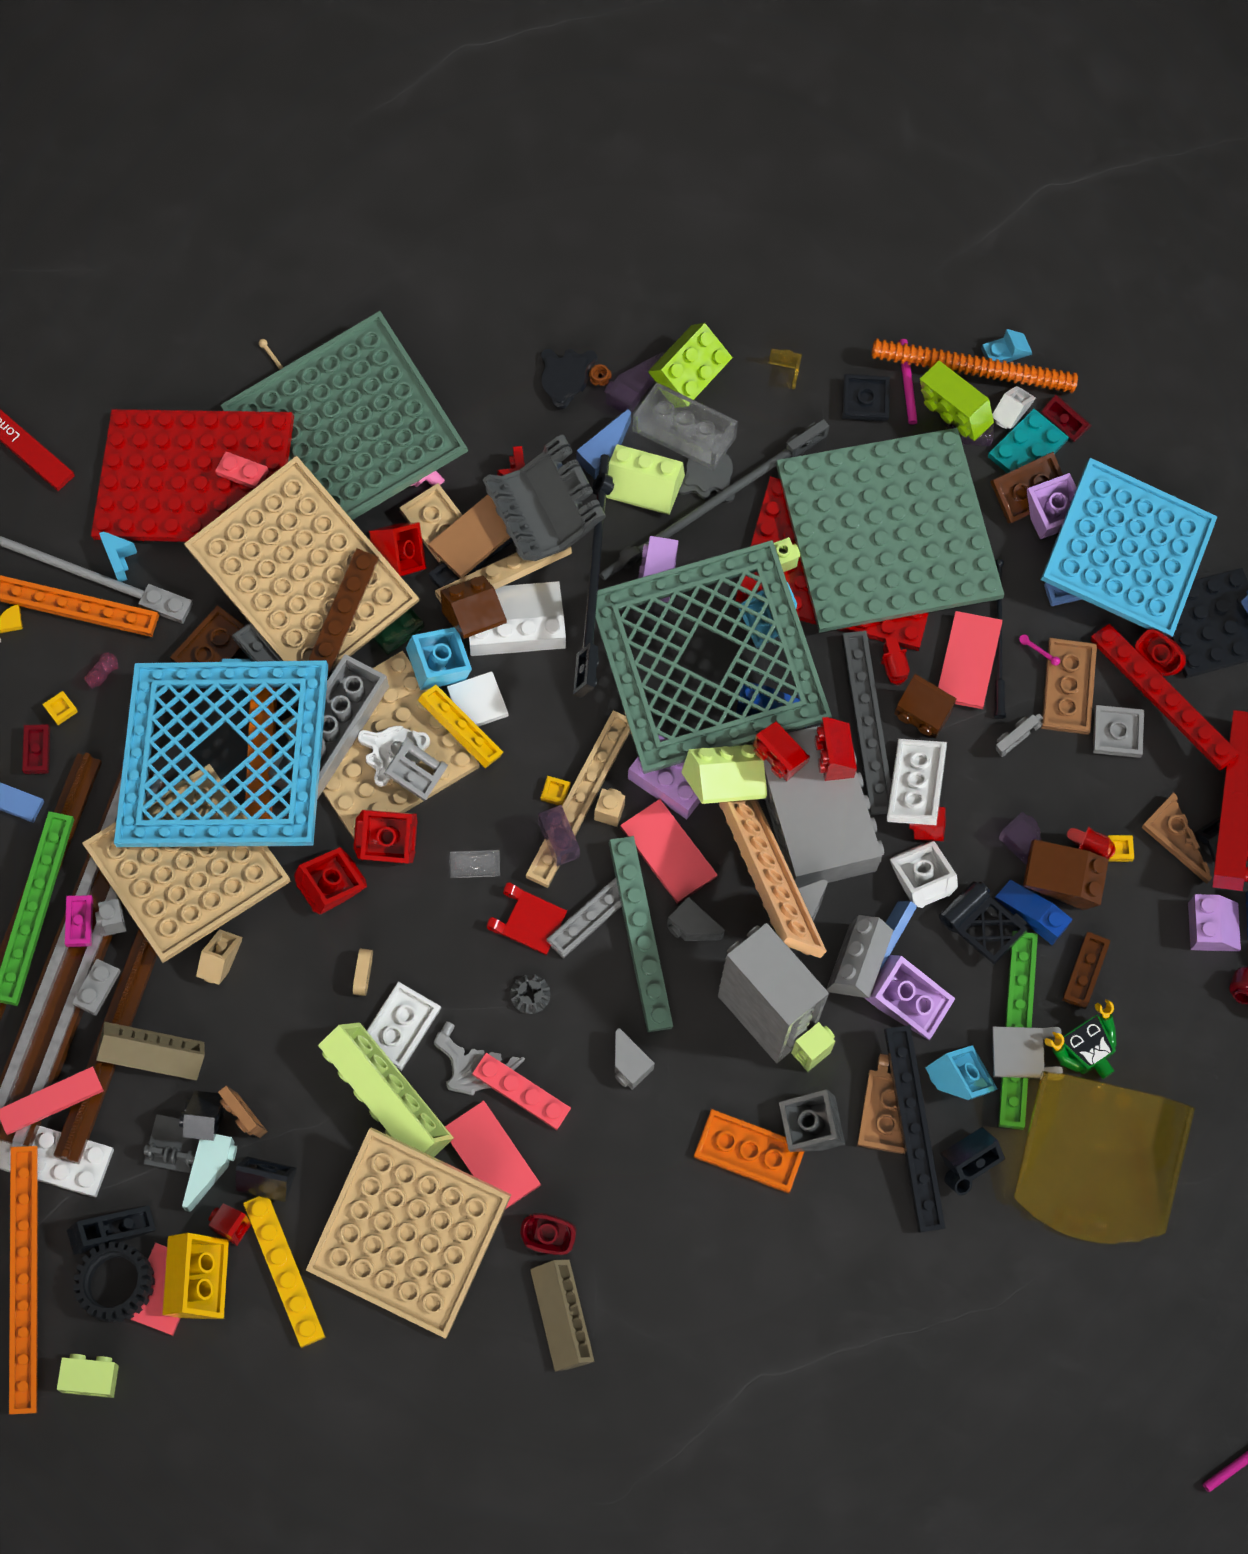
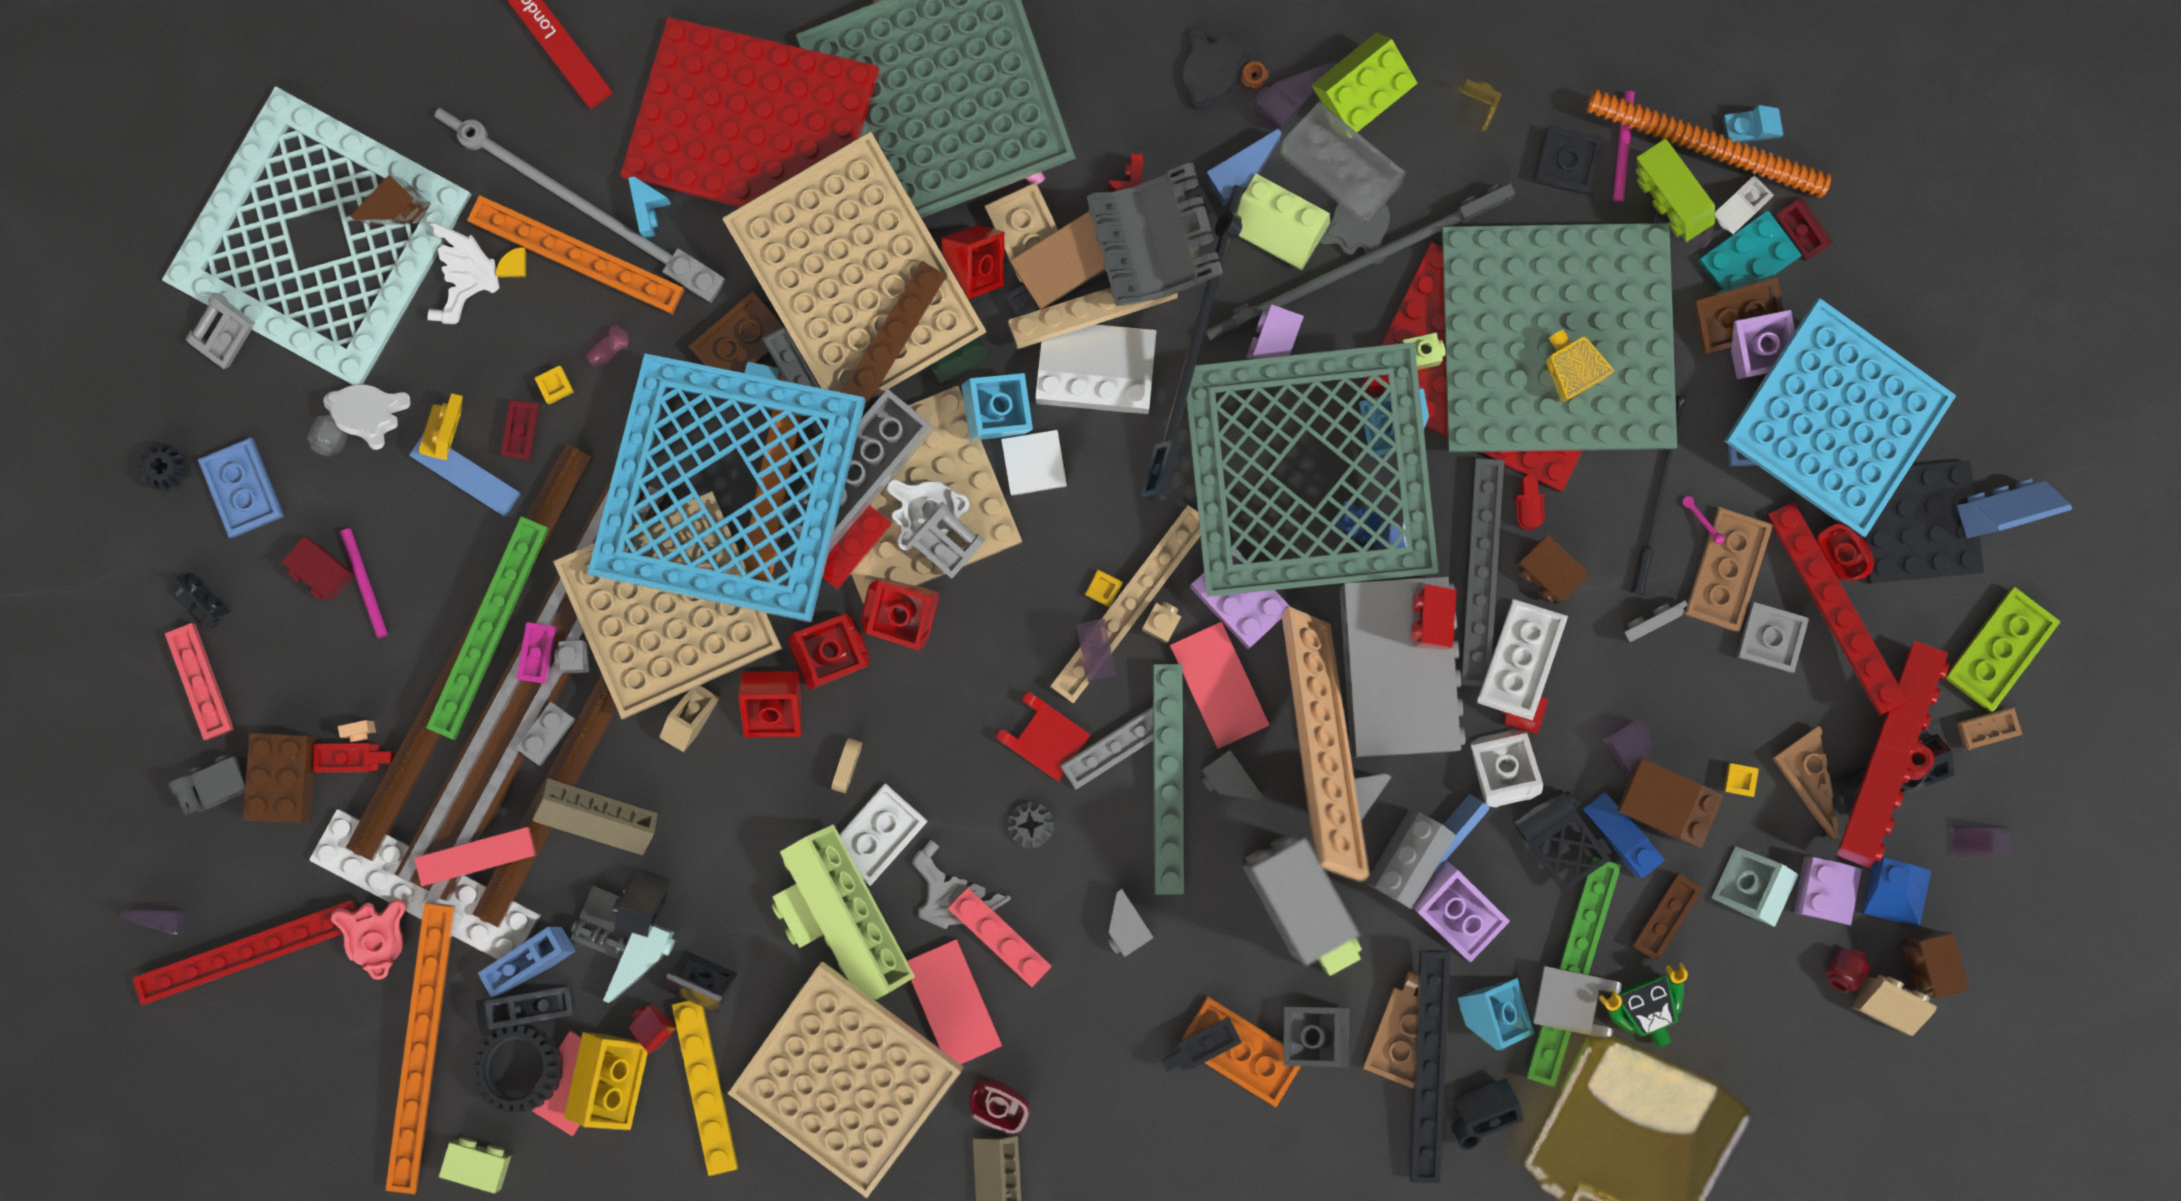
camera: 15 degrees right, 15 degrees up
(109, 1185) = (527, 960): none -> medium blue slope
(241, 470) = (805, 132): coral plate -> none
(246, 1119) = (686, 907): medium nougat plate -> none
(288, 933) = (770, 704): none -> red slope
(338, 790) = (855, 546): none -> red plate
(340, 1099) = (797, 914): none -> yellowish green brick
(460, 726) = (1007, 494): yellow plate -> none
(472, 606) = (1046, 354): reddish brown slope -> none
(475, 863) = (996, 659): clear plate -> none
(715, 1148) = (1203, 1046): none -> black hinge
(725, 774) = (1301, 619): yellowish green slope -> none
(780, 751) = (1370, 608): red slope -> none
(907, 542) = (1575, 365): none -> yellow torso
(970, 658) = (1617, 517): coral tile -> none
(1092, 841) = (1709, 771): red arm -> none
(1153, 930) = (1755, 886): none -> light aqua slope

